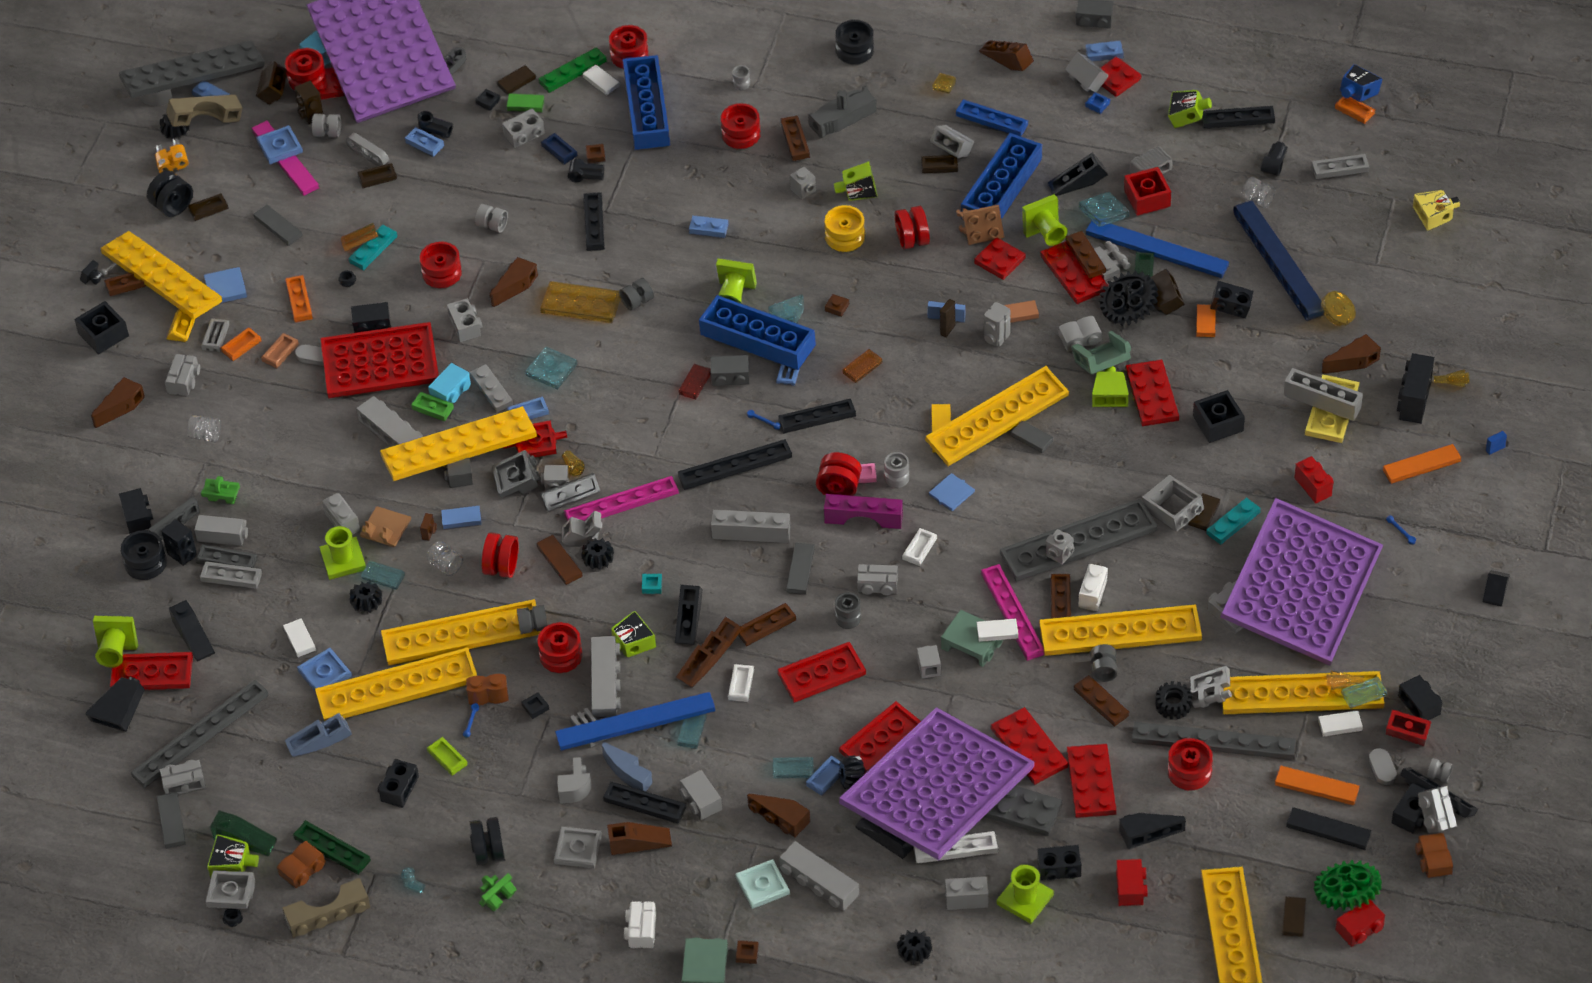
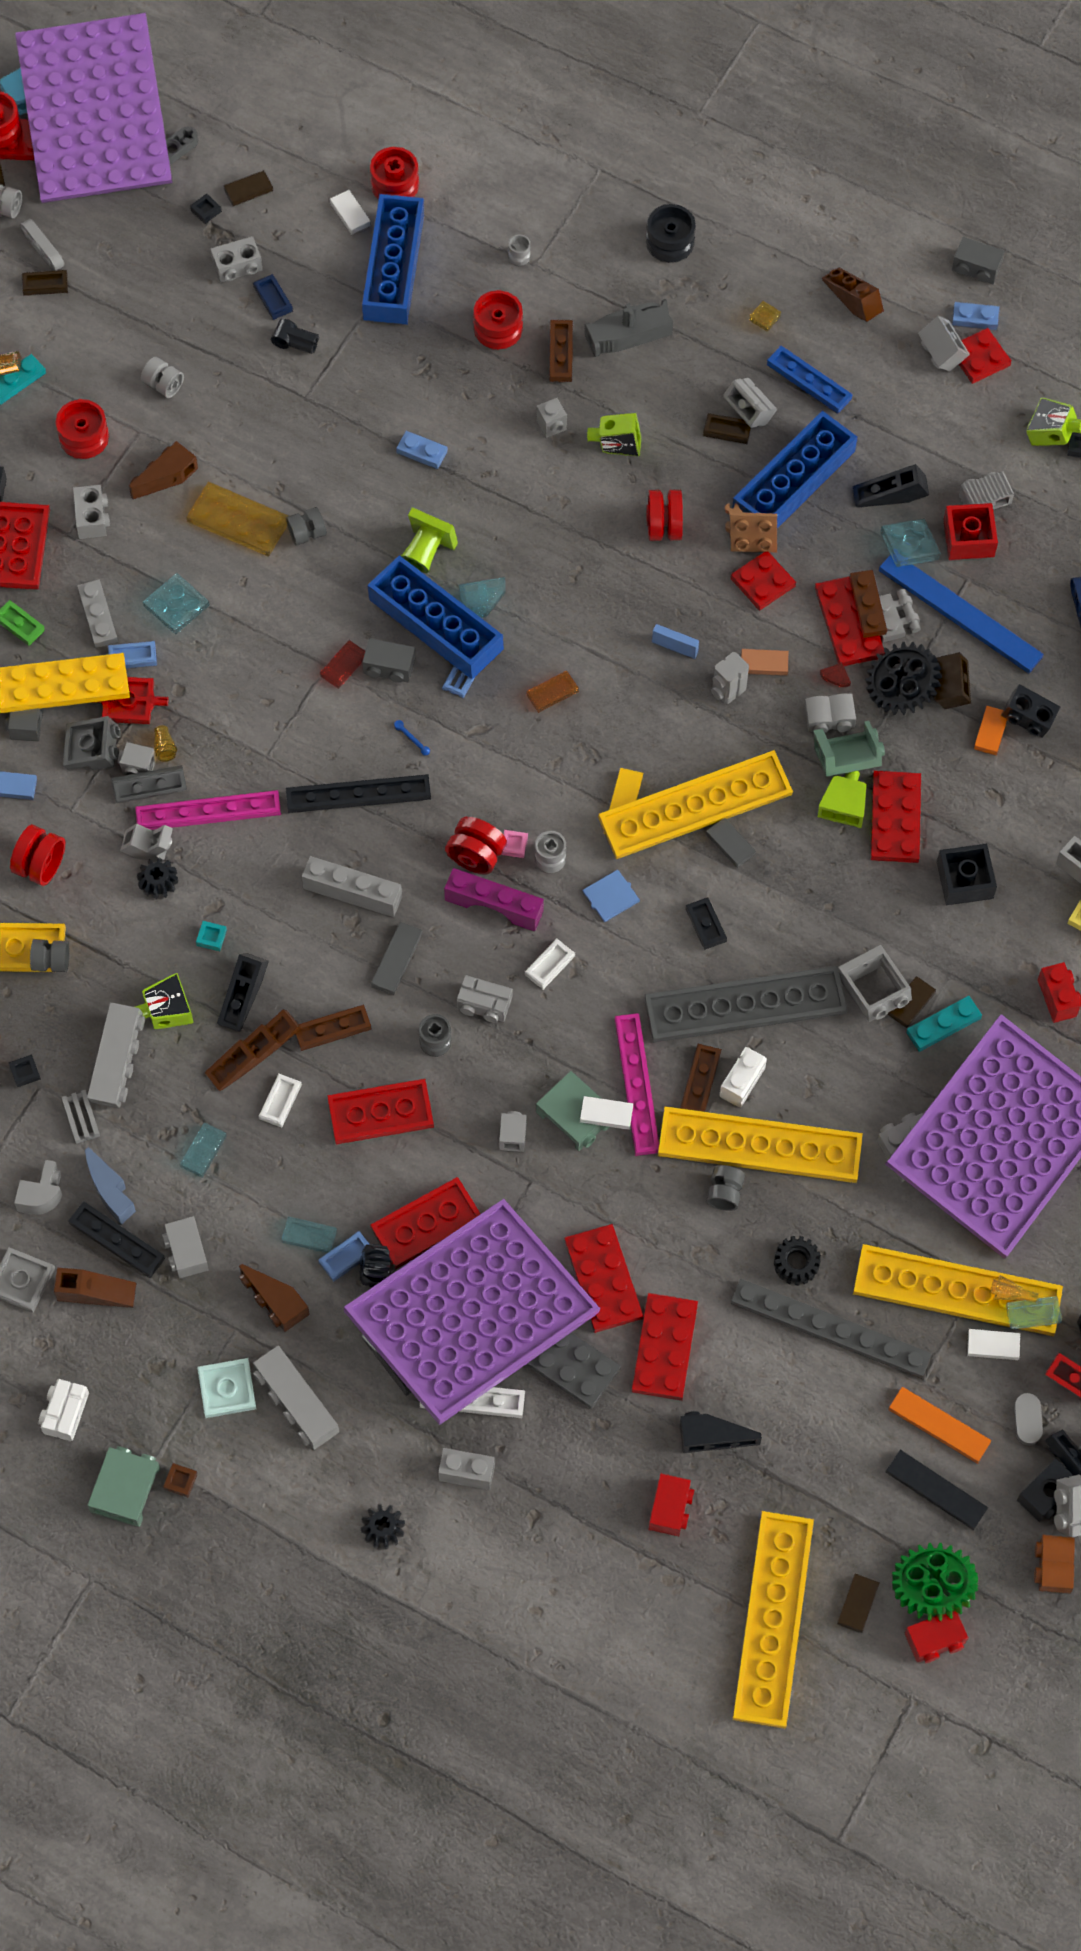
camera: 10 degrees right, 15 degrees up
(424, 141) = (113, 249): medium blue plate -> none
(434, 125) = (131, 229): black piece -> none
(450, 384) = (47, 598): medium azure brick -> none
(525, 102) = (250, 223): bright green tile -> none
(559, 559) = (111, 873): reddish brown tile -> none
(559, 647) = (74, 999): red wheel -> none
(572, 70) = (319, 189): green plate -> none
(594, 221) = (285, 409): black tile -> none
(595, 153) = (313, 315): reddish brown plate -> none
(635, 721) = (136, 1124): blue tile -> none
(817, 416) = (477, 748): black tile -> none
(837, 305) = (545, 598): reddish brown plate -> none
(844, 228) = (583, 495): yellow wheel -> none
(947, 318) = (672, 653): dark brown tile -> none
(1025, 894) = (536, 1501): lime plant -> none
(1031, 493) = (706, 923): none -> black plate
(1044, 219) = (830, 540): lime plant -> none
(1058, 858) = (592, 1447): black brick -> none
(1059, 546) = (720, 1019): light grey brick -> none
(1076, 308) = (836, 675): none -> clear red tile
(1097, 103) = (946, 387): blue tile -> none
(1101, 700) = (709, 1237): reddish brown plate -> none
(1144, 263) = (937, 634): clear green tile -> none
(1190, 764) = (777, 1361): red wheel -> none
(1208, 682) = (849, 1249): light grey plate -> none

